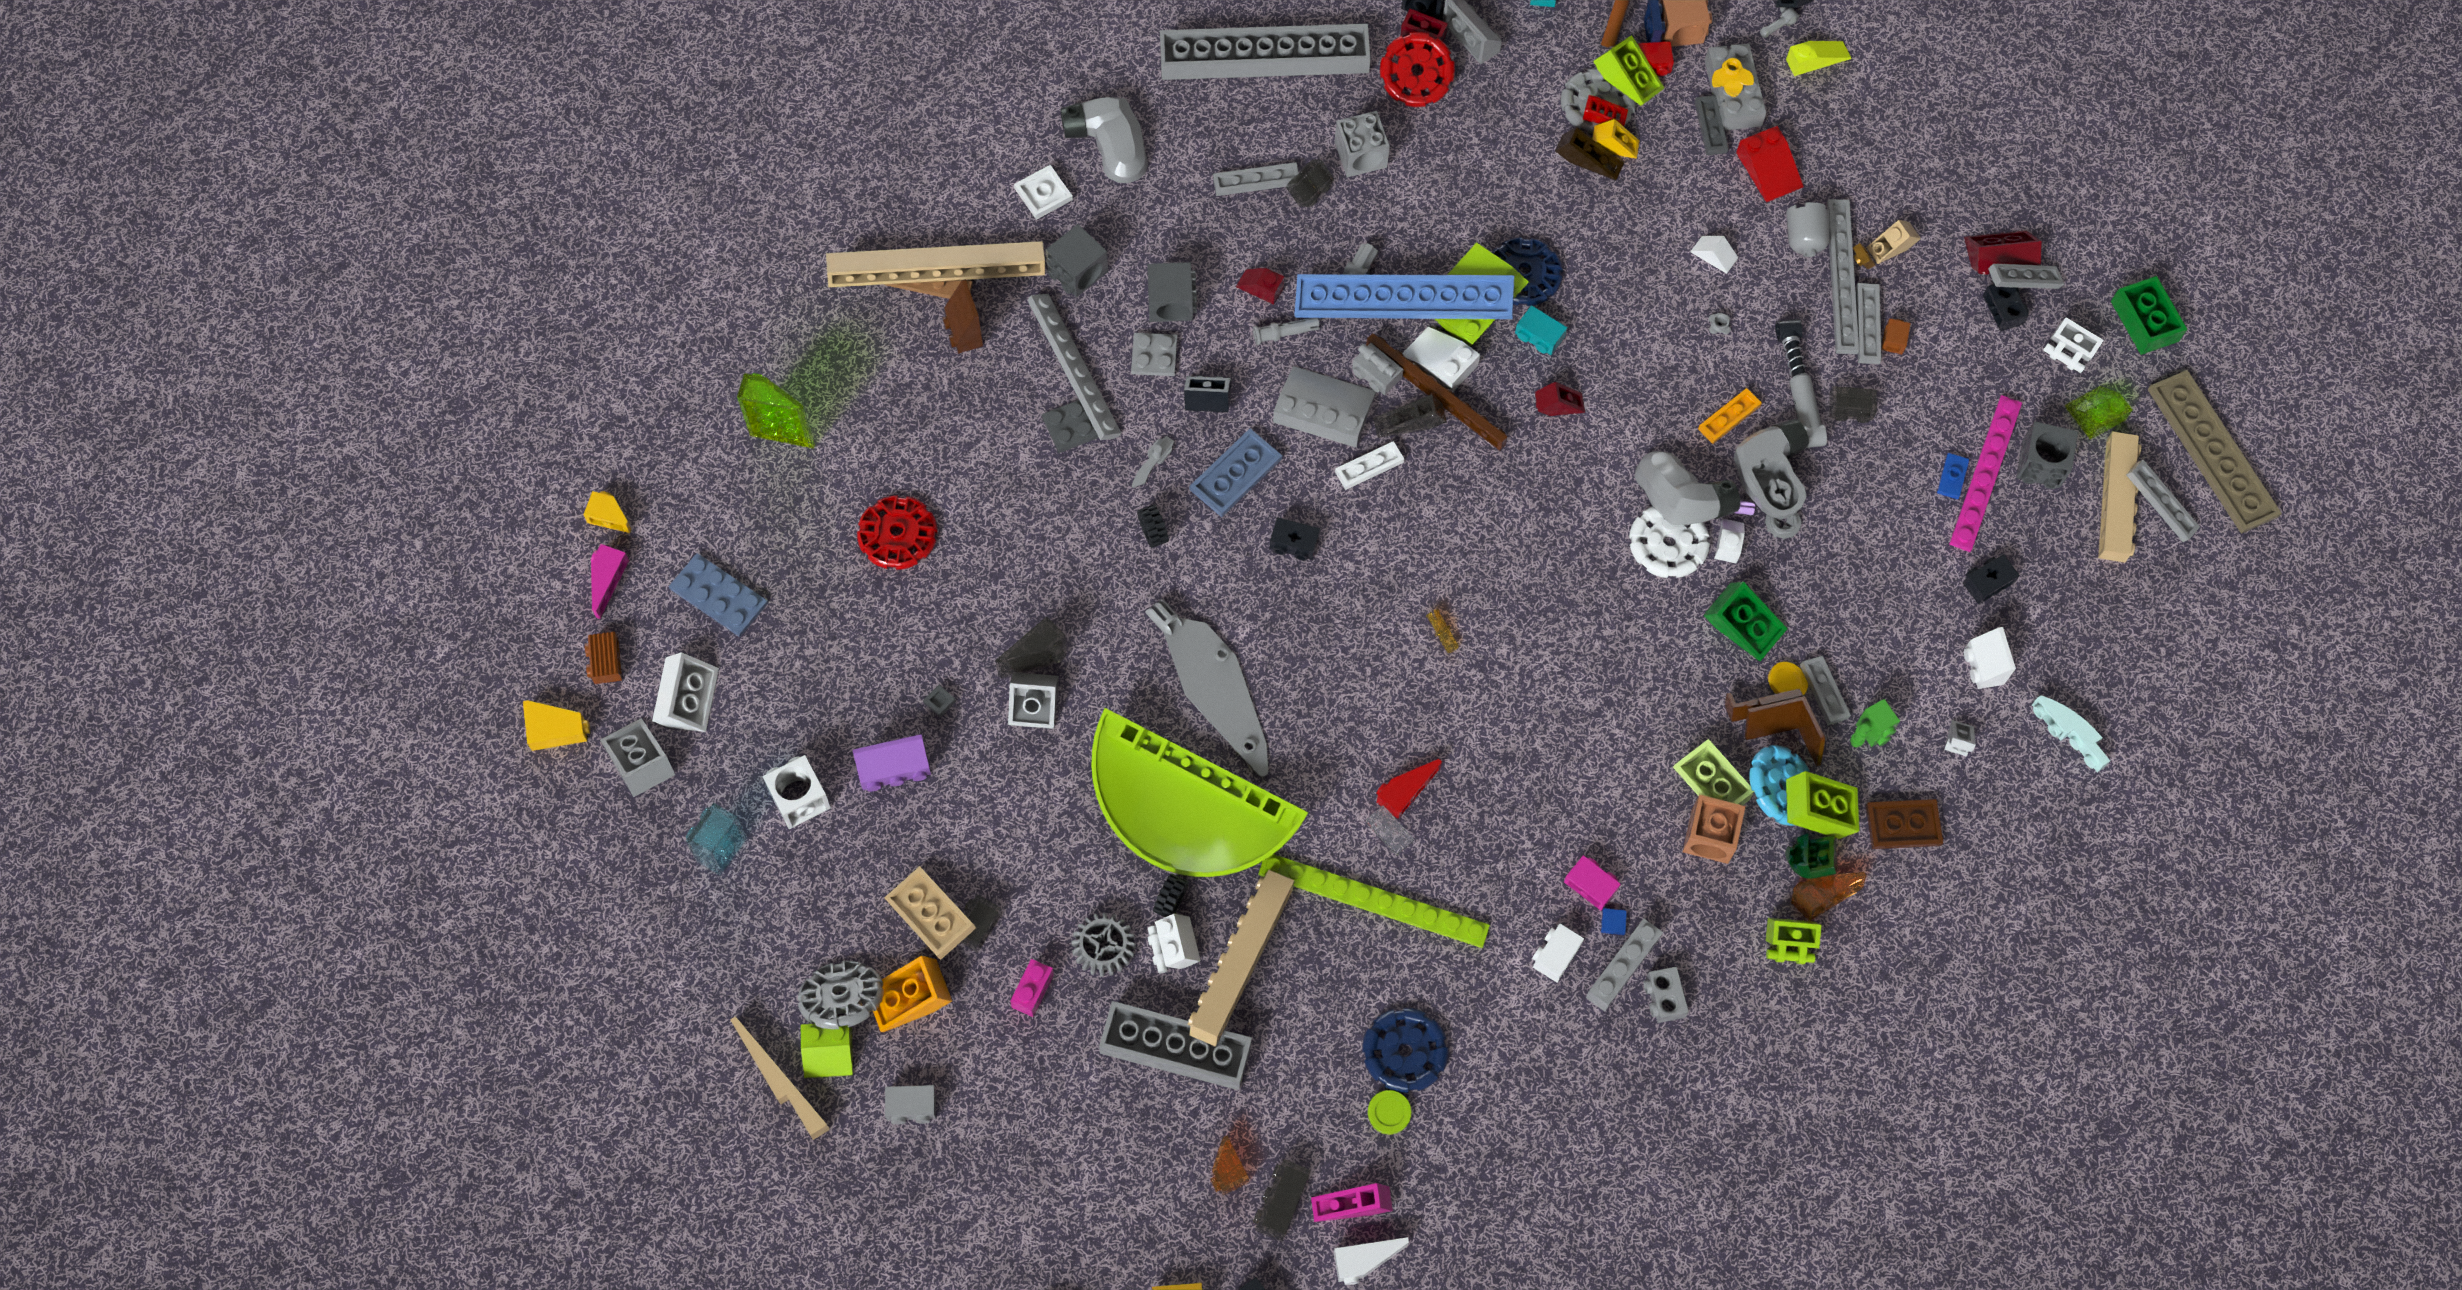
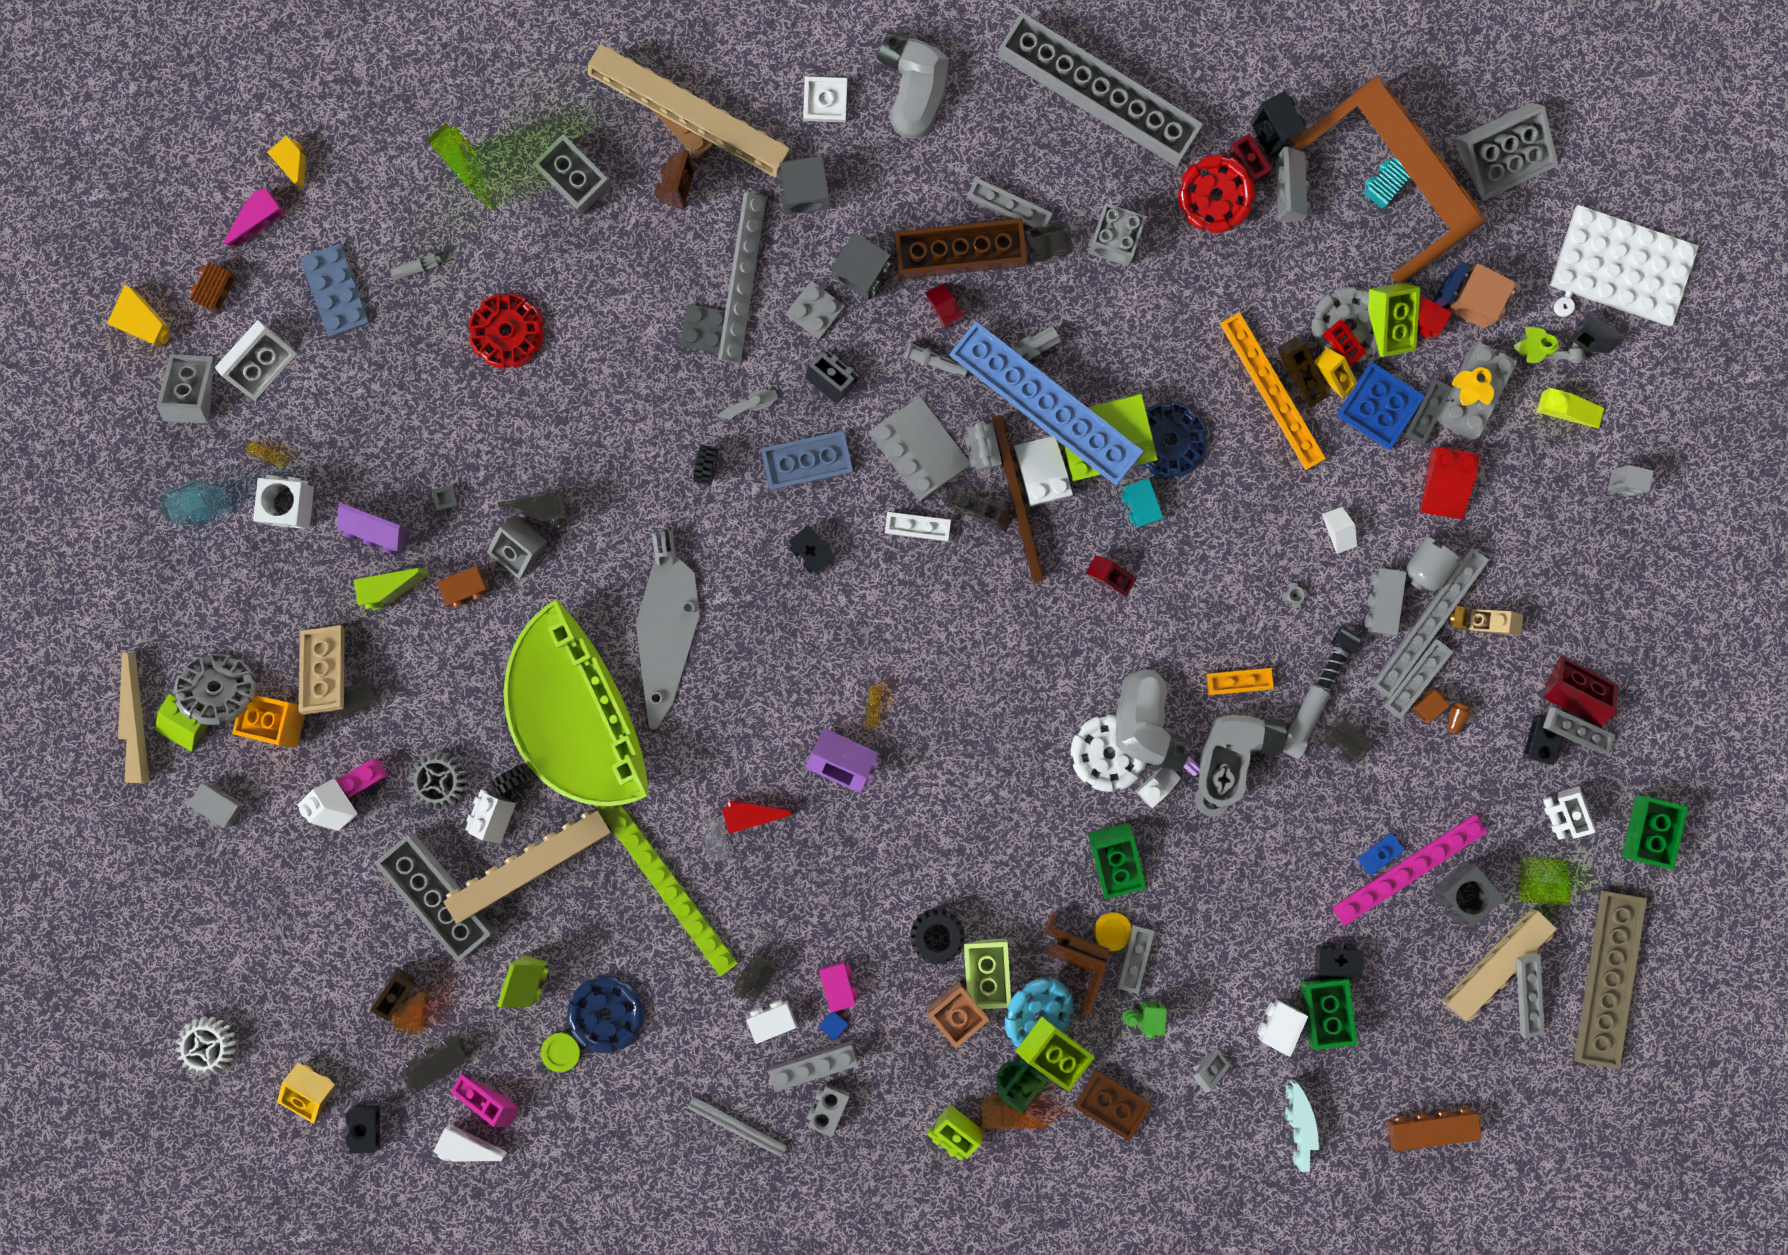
camera: 35 degrees right, 20 degrees up
(749, 767) = (267, 454): none -> clear yellow axle
(779, 530) = (420, 265): none -> light grey piece
(869, 372) = (572, 174): none -> light grey brick
(938, 805) = (384, 589): none -> lime slope
(1008, 763) = (462, 587): none -> dark orange brick
(1020, 1028) = (327, 806): none -> white slope
(1197, 1160) = (392, 994): none -> dark brown brick
(1242, 231) = (960, 249): none -> reddish brown brick
(1312, 1063) = (523, 982): none -> lime slope
(1452, 687) = (842, 761): none -> medium lavender piece
(1514, 922) = (755, 977): none -> clear smoke brick
(1577, 185) = (1272, 391): none -> light orange plate
(1597, 1069) = (737, 1127): none -> light grey axle
(1640, 797) = (943, 954): none -> black tyre
(1670, 144) = (1380, 406): none -> blue plate
(1754, 27) = (1535, 344): none -> lime plate
(1795, 281) = (1385, 601): none -> light grey brick
(1907, 74) = (1631, 480): none -> light grey brick
(1924, 330) = (1458, 716): none -> dark orange cone
(2023, 622) = (1329, 1012): none -> green brick
(2177, 664) = (1434, 1130): none -> dark orange brick

